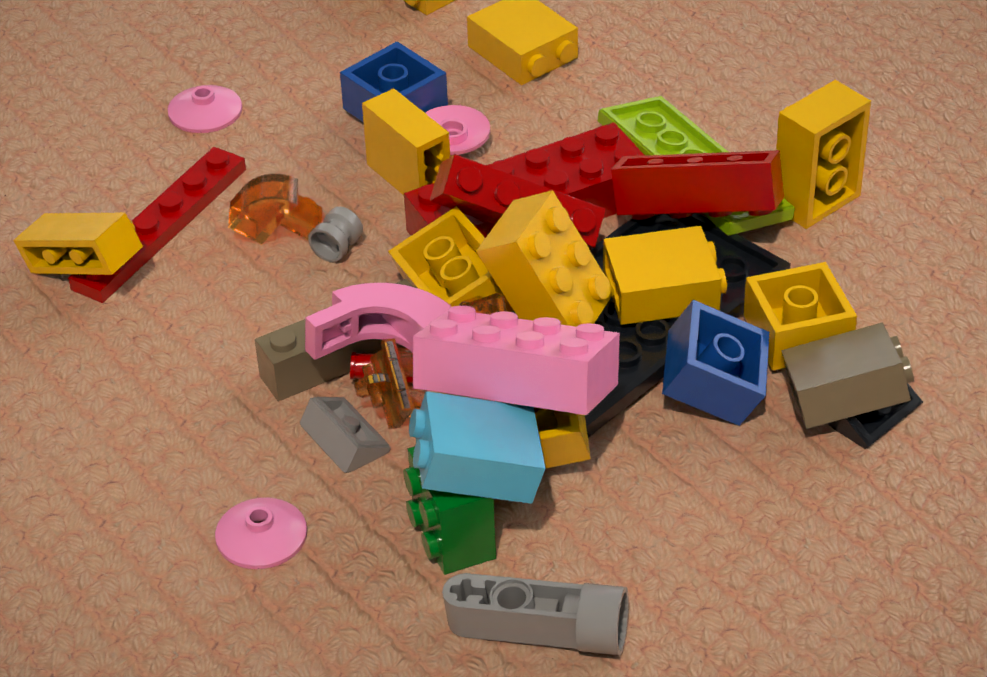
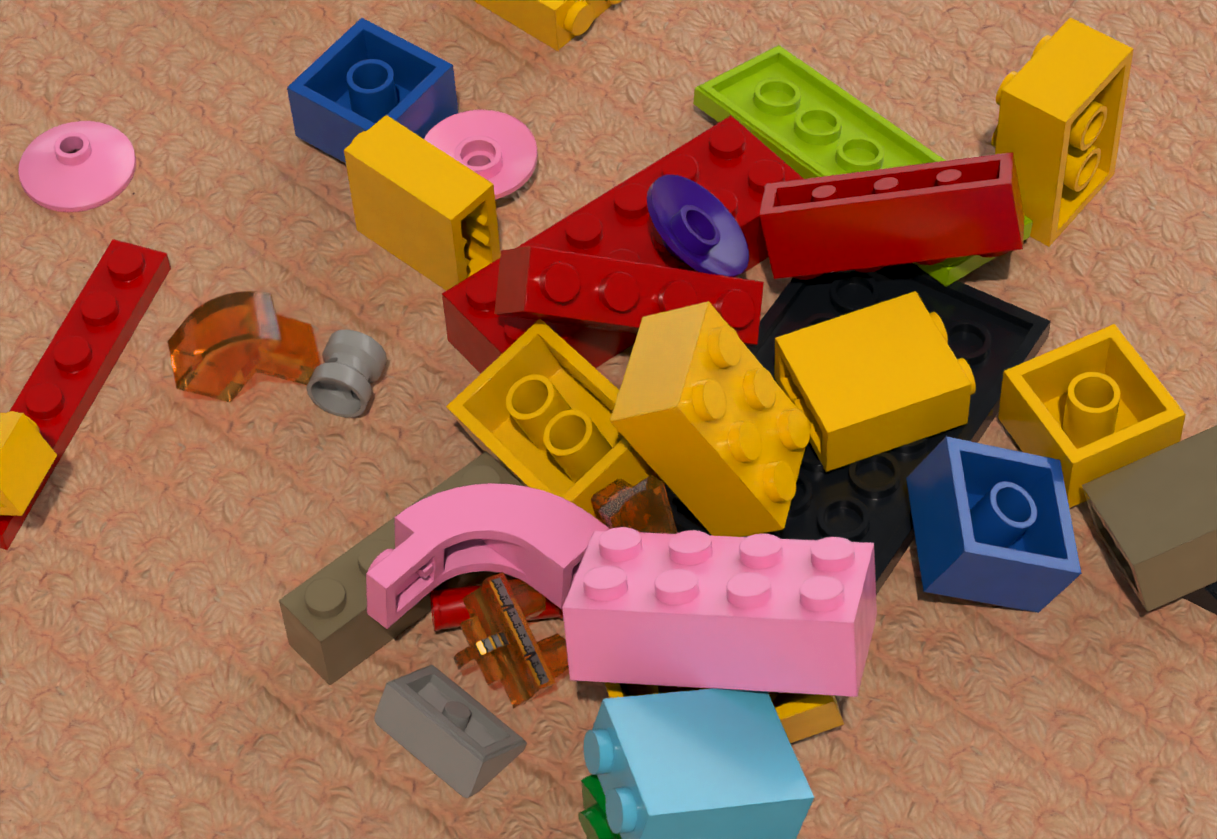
camera: 10 degrees left, 10 degrees up
(569, 170) = (697, 227): none -> dark purple dish

